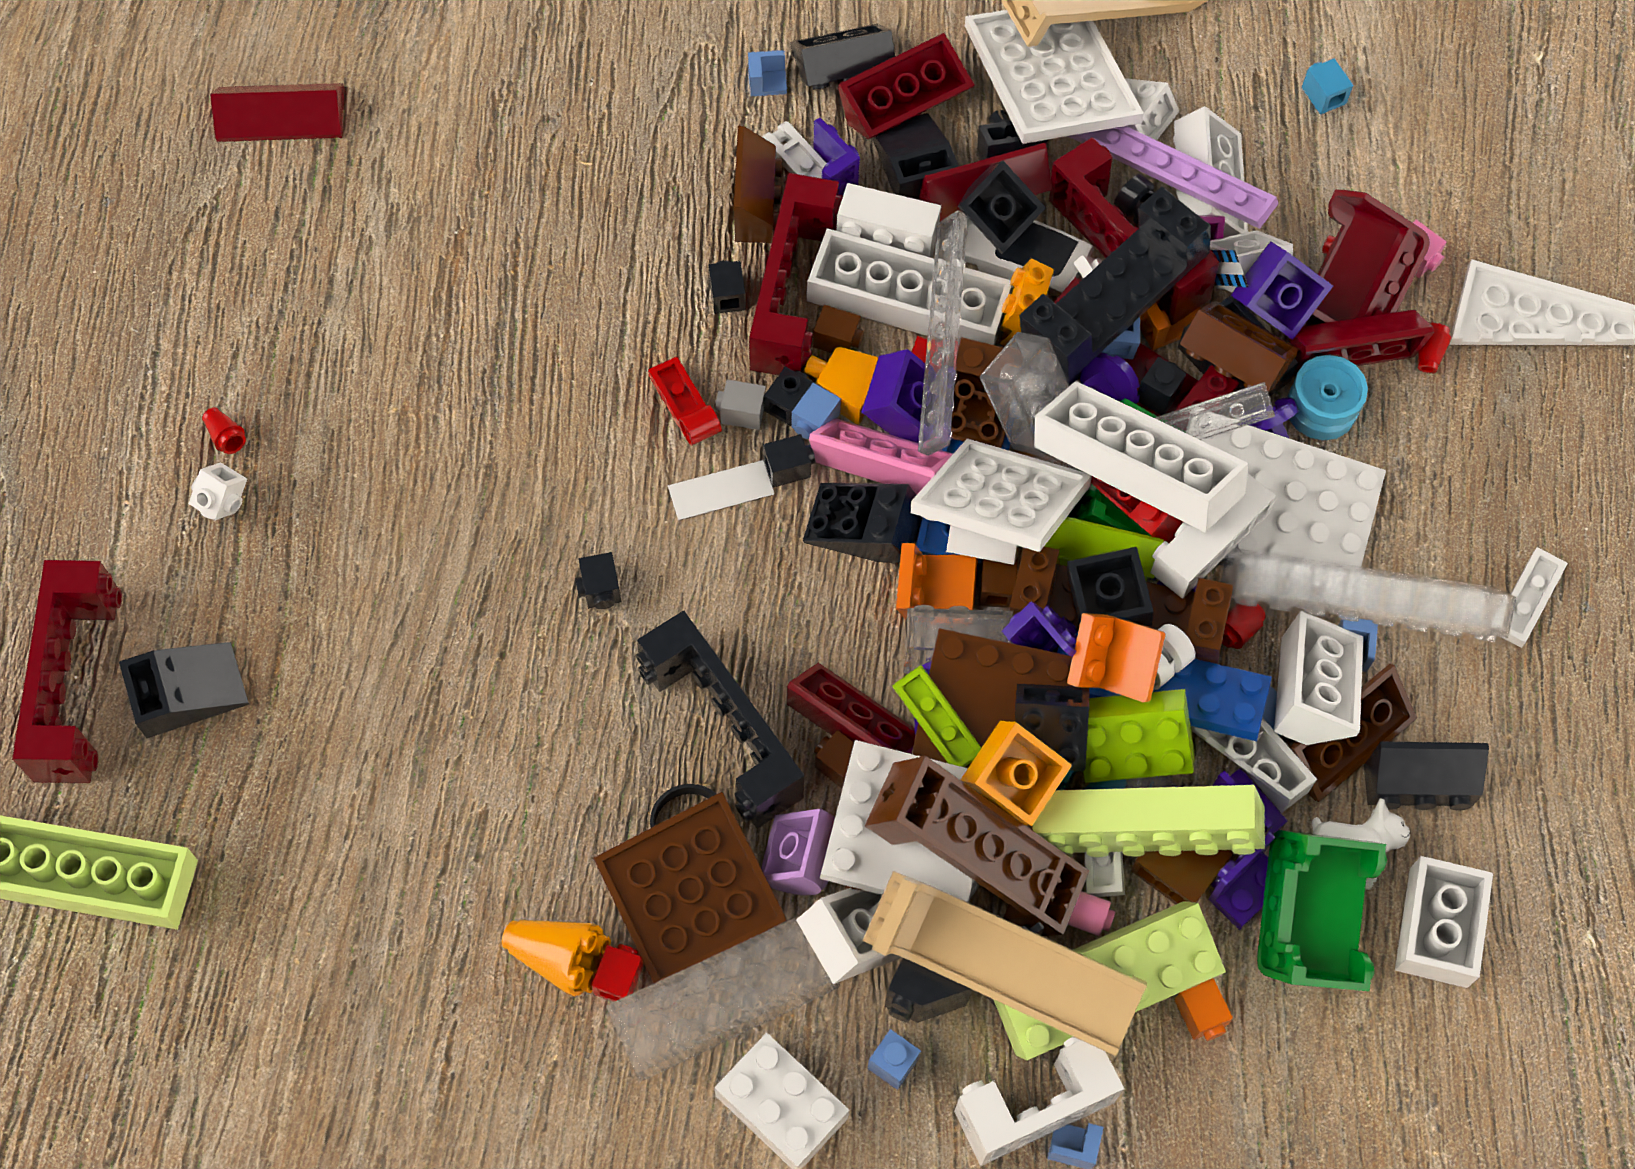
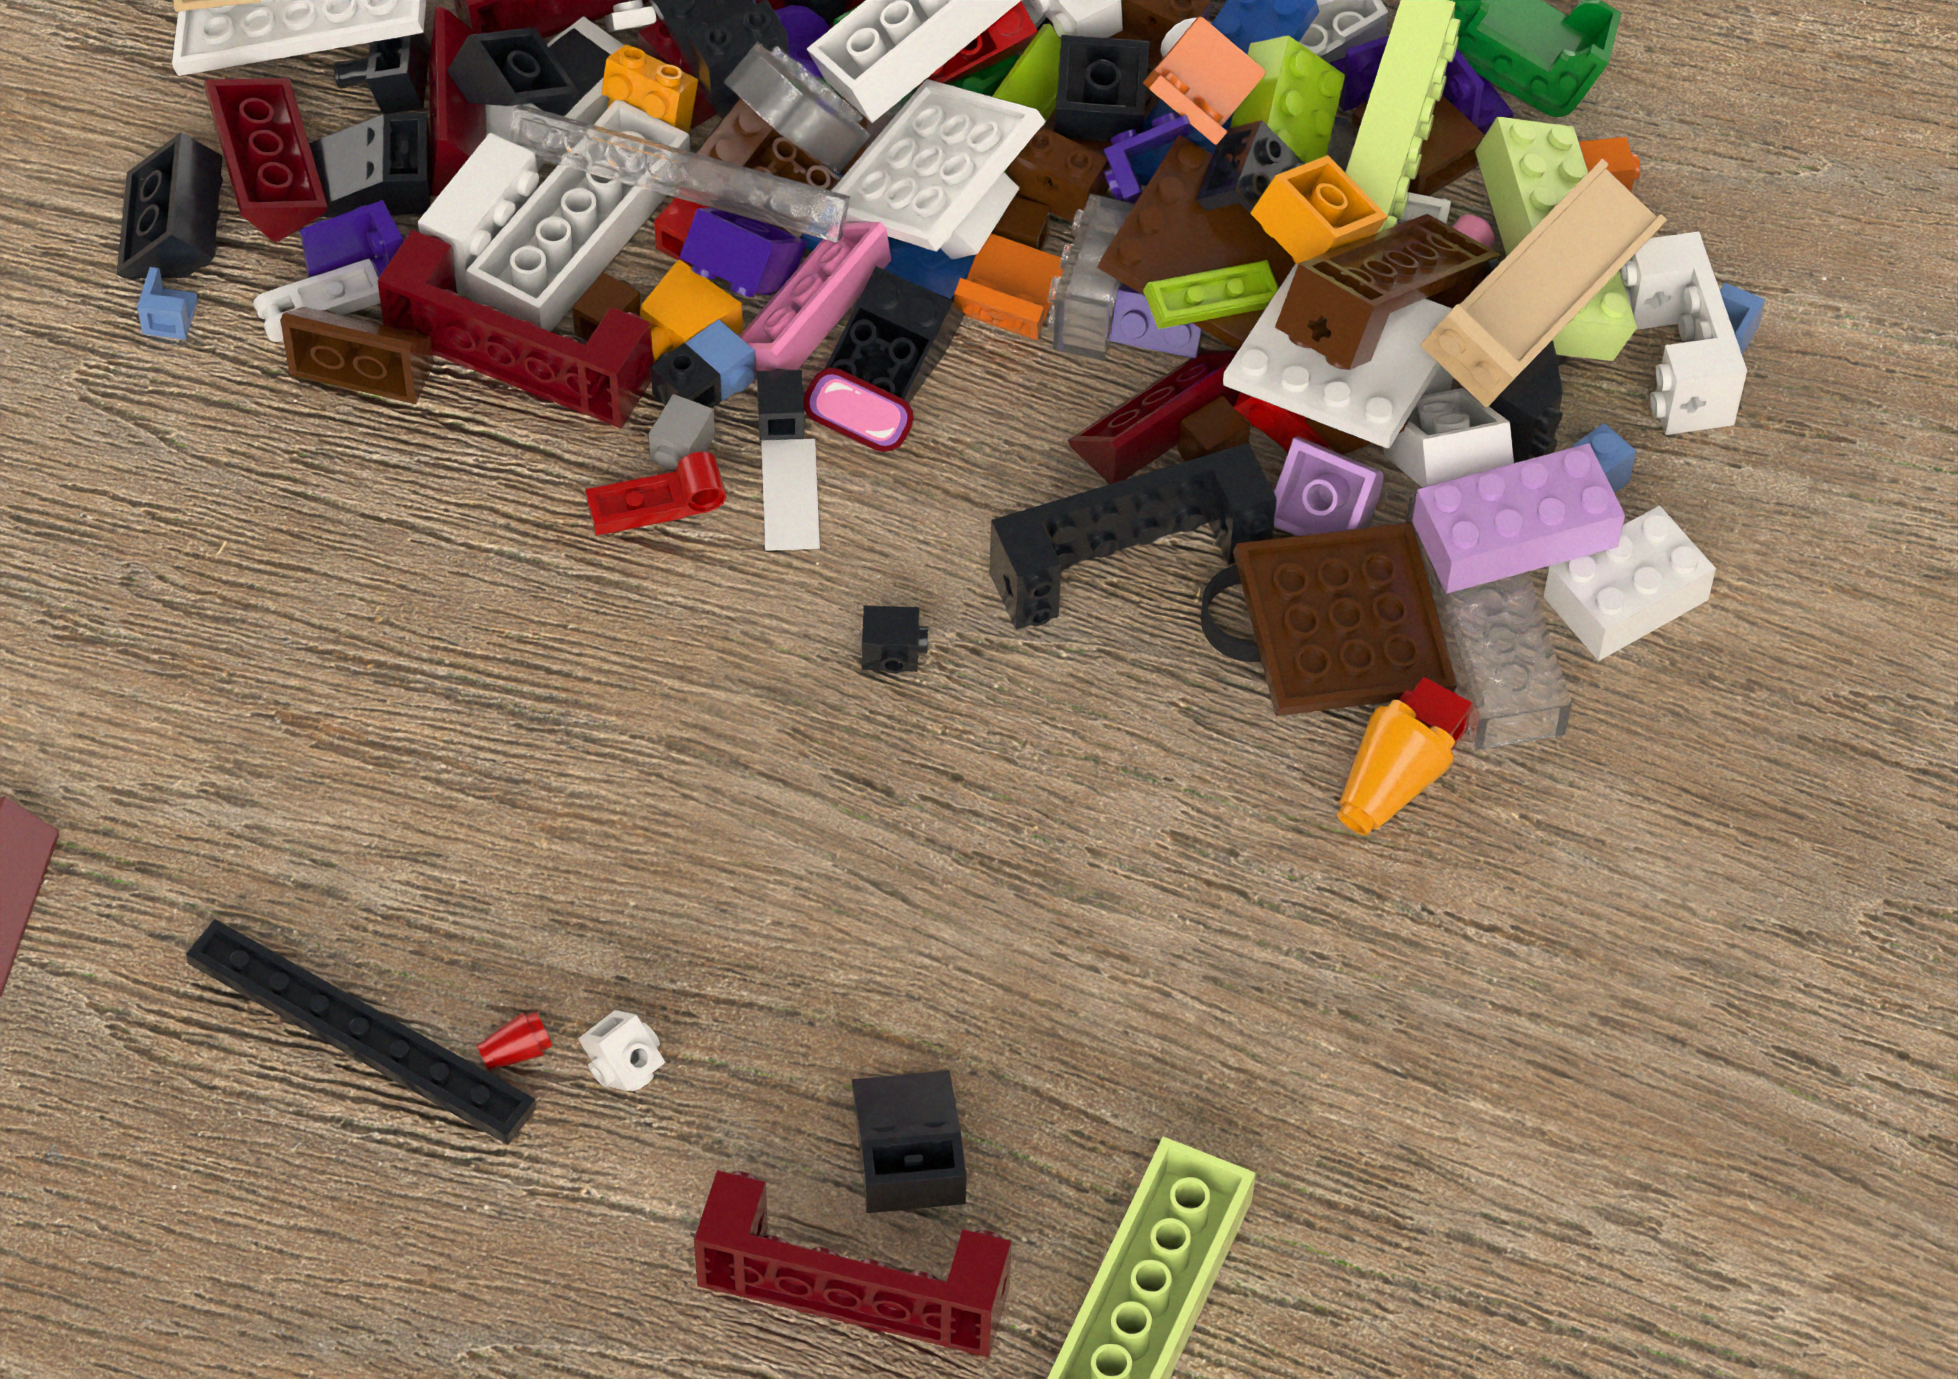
camera: 75 degrees left, 10 degrees down
(215, 341) = (361, 1031): none -> black plate
(727, 286) = (494, 415): black brick -> none
(785, 993) = (1518, 518): none -> lavender brick
(801, 514) = (858, 410): none -> sticker

